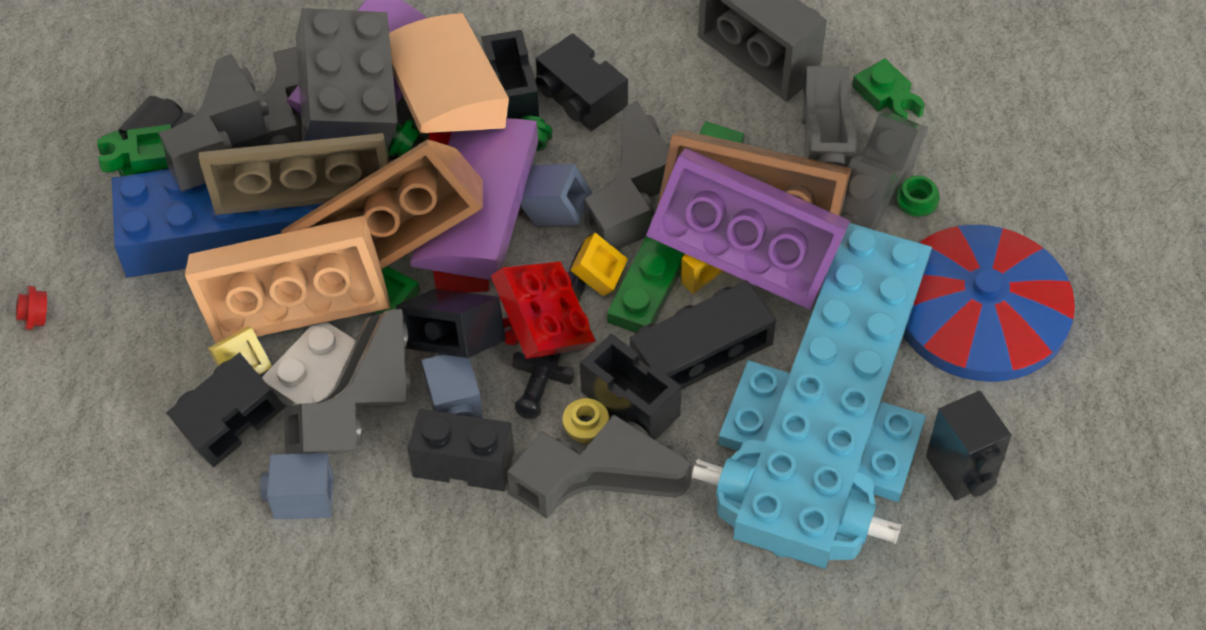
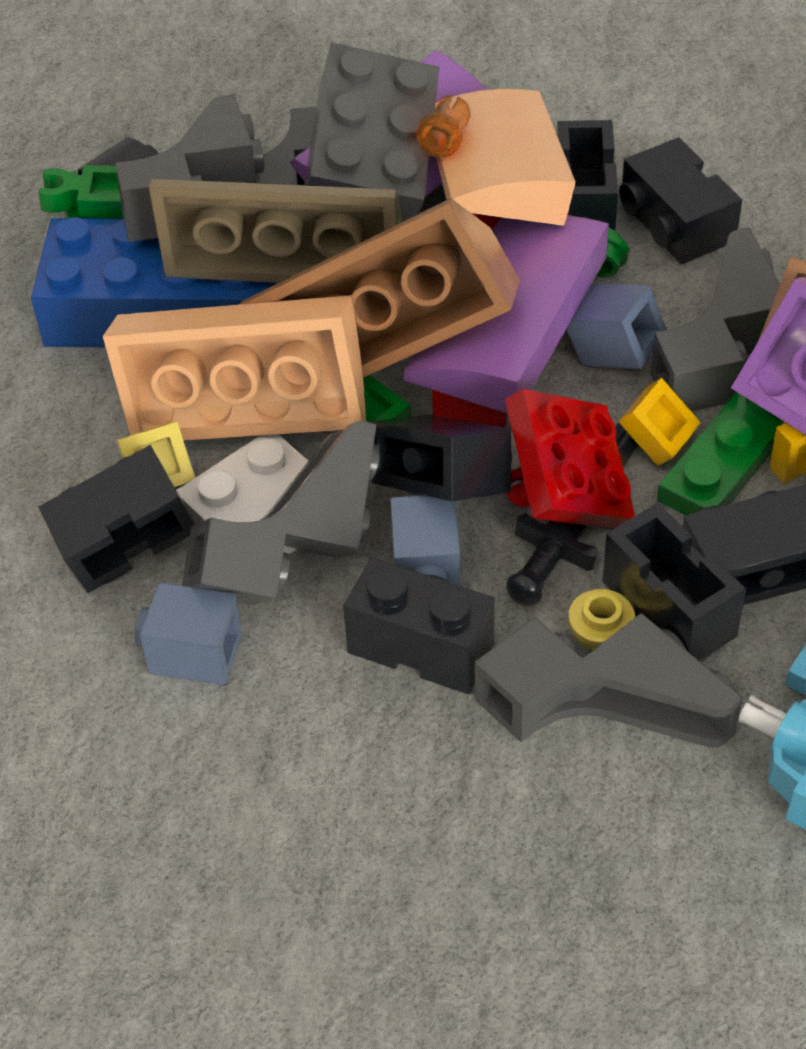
camera: 15 degrees right, 5 degrees down
(401, 68) = (442, 130): none -> clear orange pin

